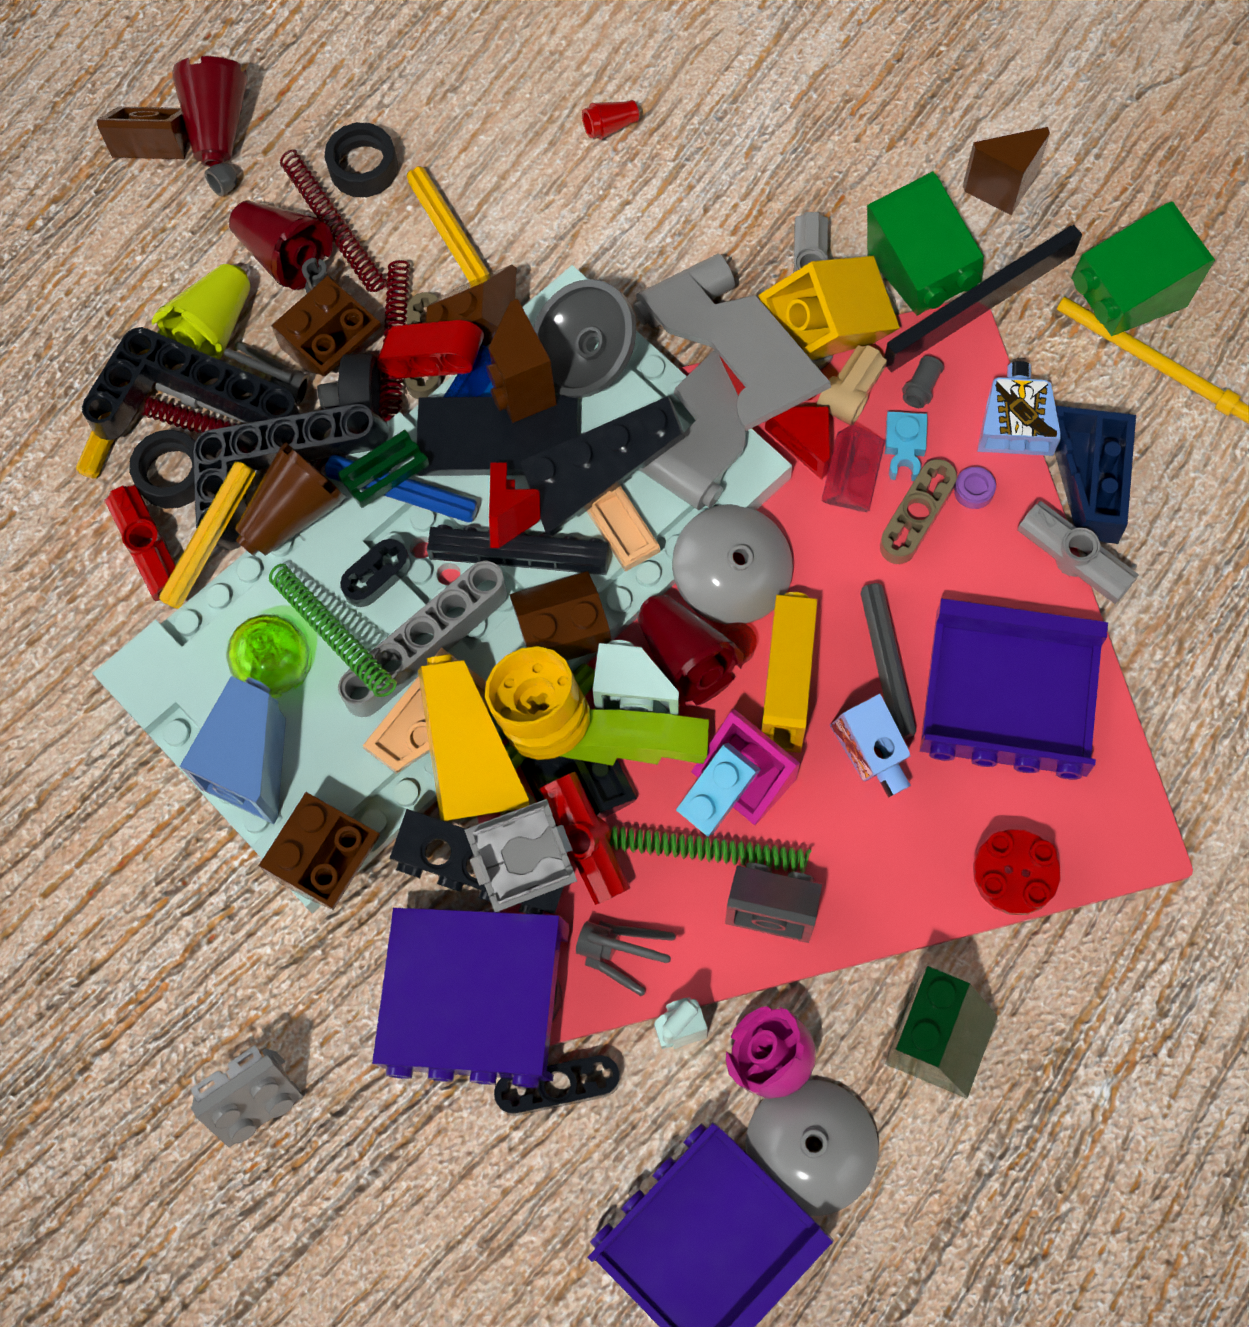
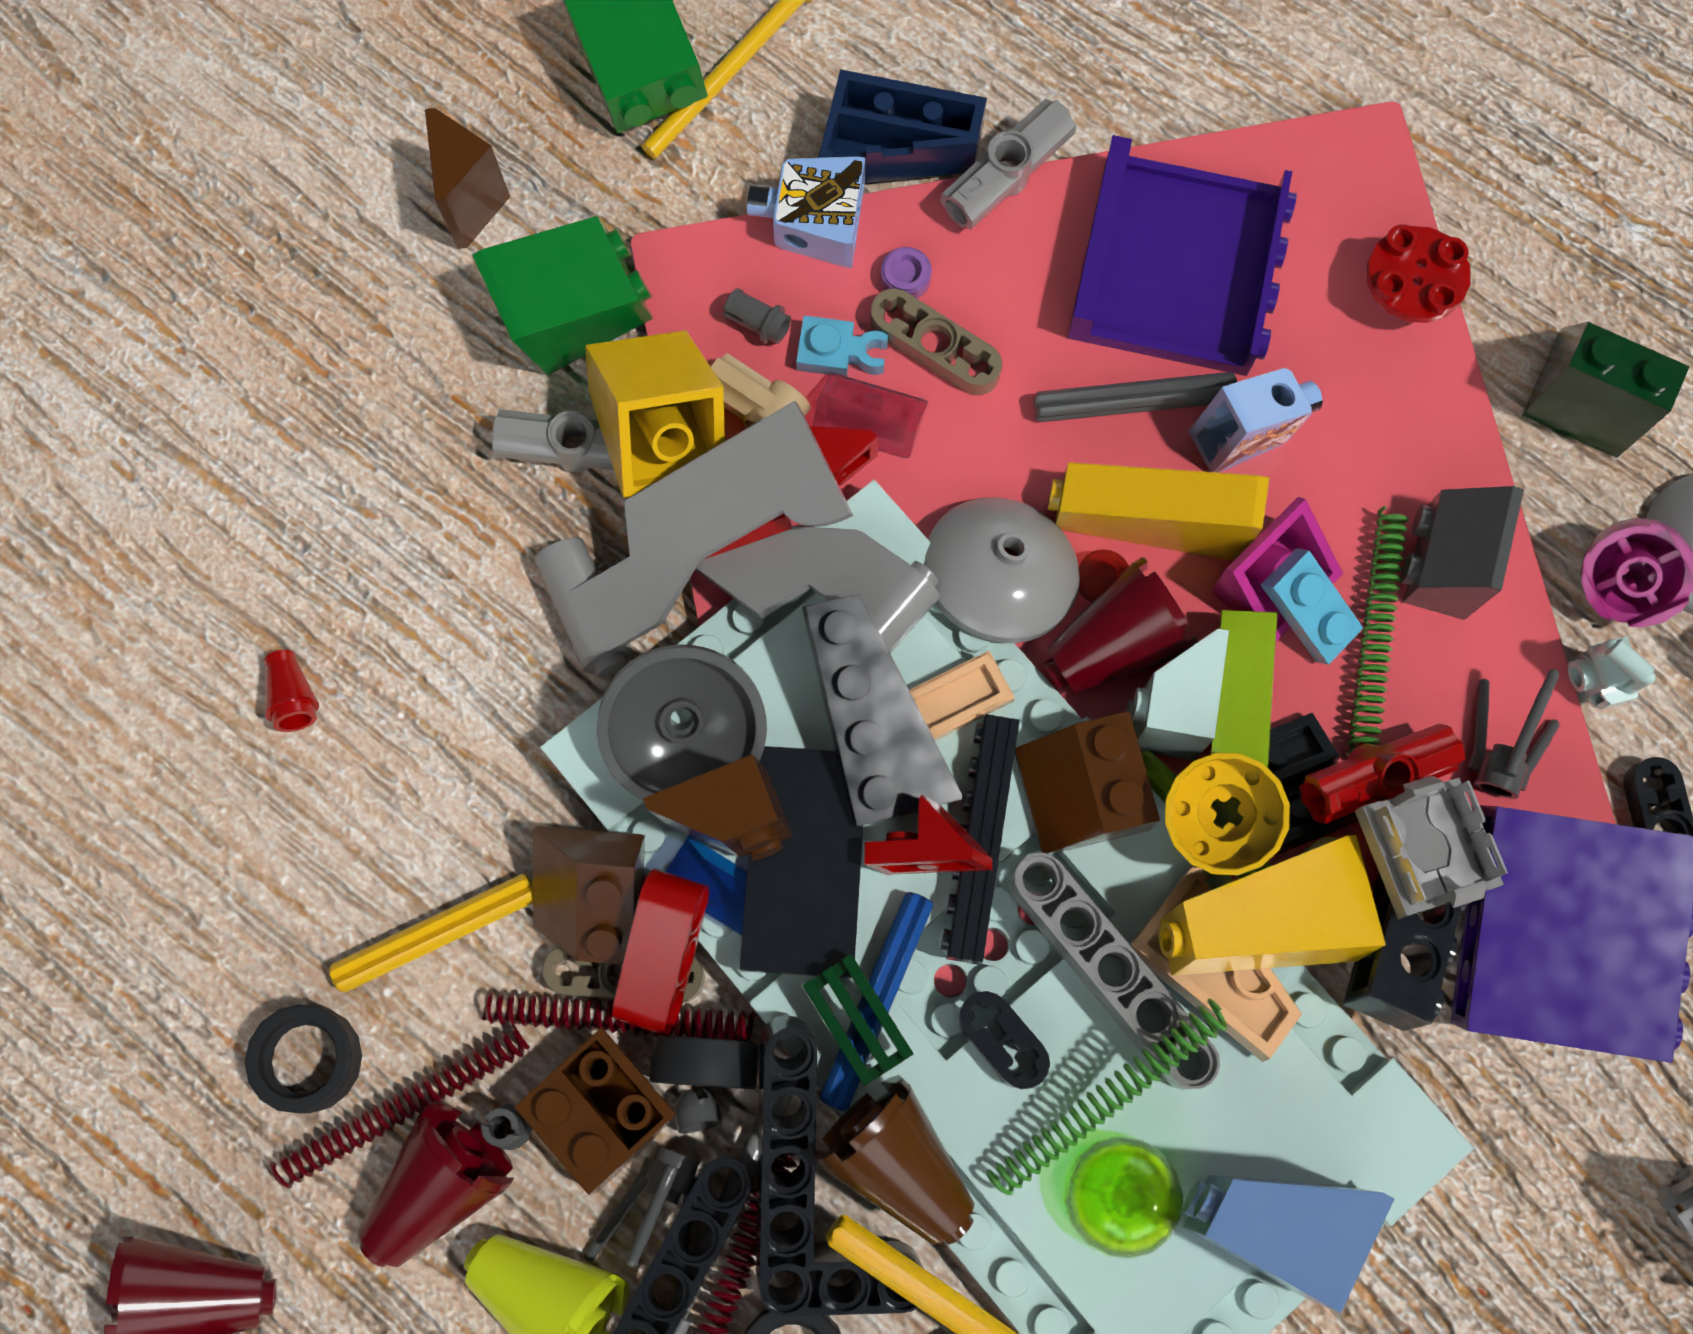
camera: 90 degrees left, 5 degrees up
(221, 178) = (301, 1282): dark grey hinge -> none
(318, 851) = (1424, 1118): reddish brown slope -> none
(982, 298) = (646, 231): black tile -> none

